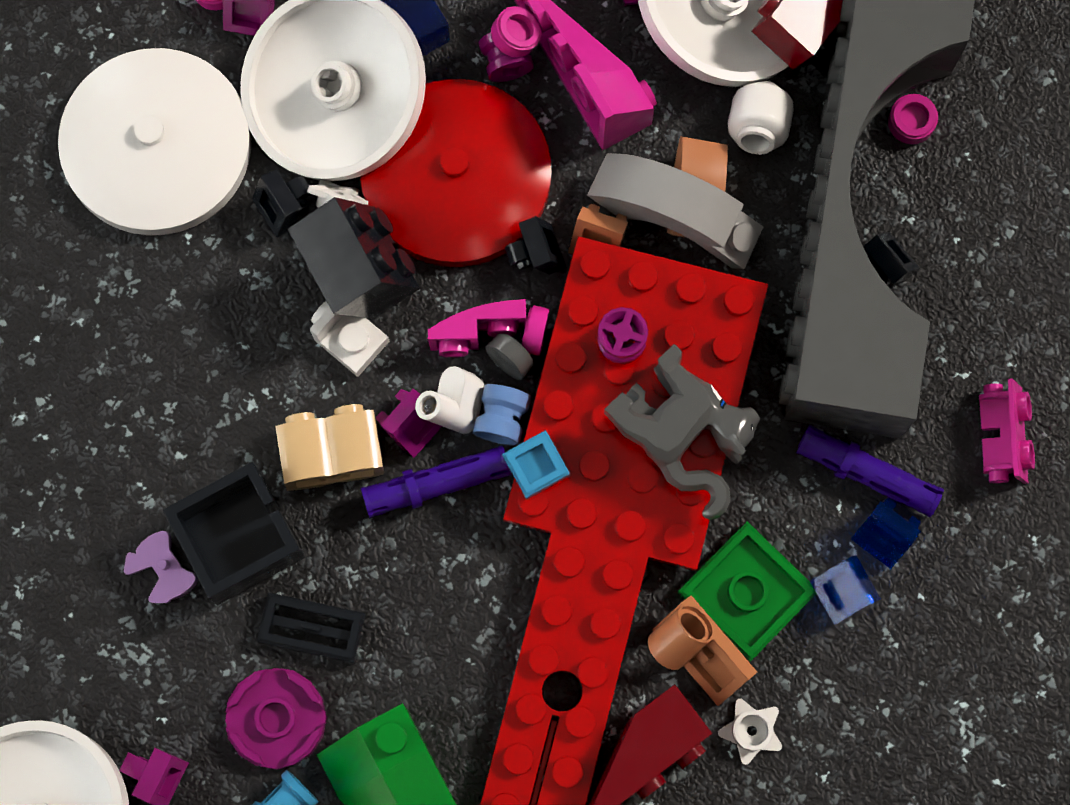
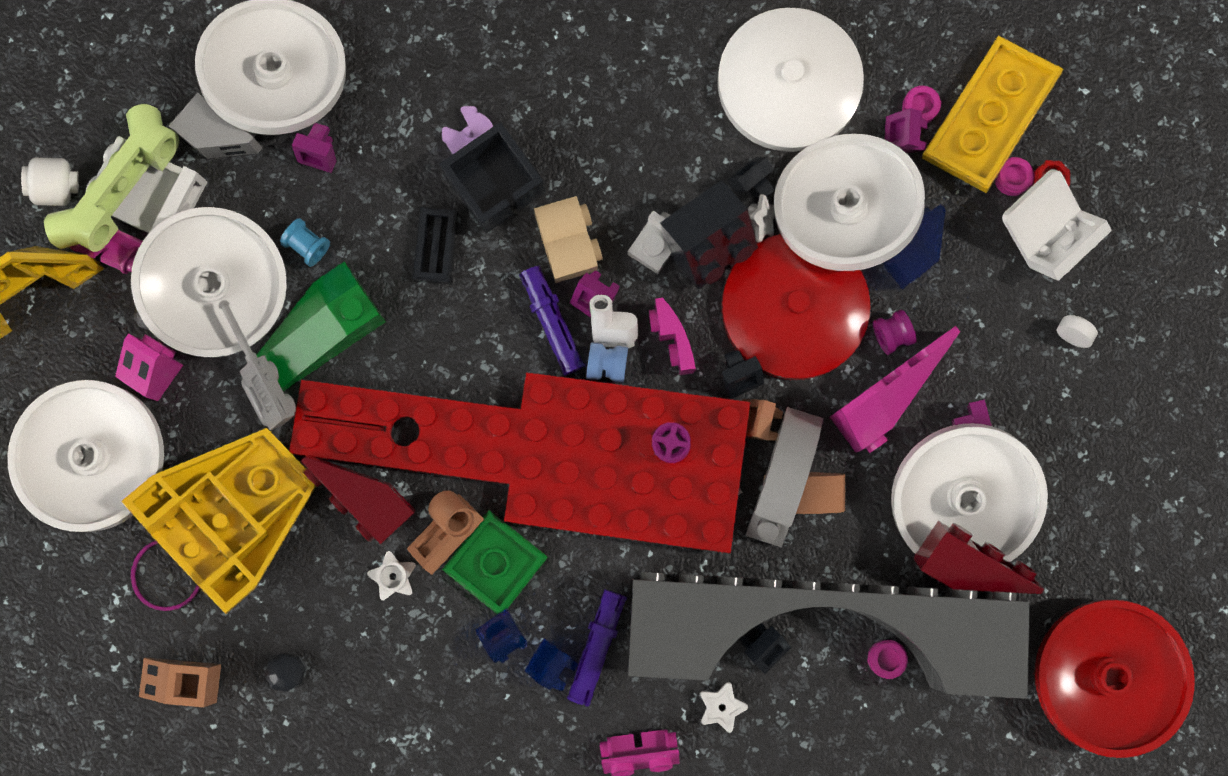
camera: 85 degrees right, 5 degrees up
(275, 718) = (367, 229): magenta tile -> none
(509, 356) = (653, 363): dark grey tile -> none
(516, 31) = (909, 335): dark pink tile -> none
(536, 329) = (676, 380): dark pink tile -> none
(536, 464) = (566, 390): dark azure tile -> none
(679, 421) = (605, 490): dark grey animal -> none
(760, 117) = (869, 536): white head -> none
(949, 335) = (714, 699): none -> white plate

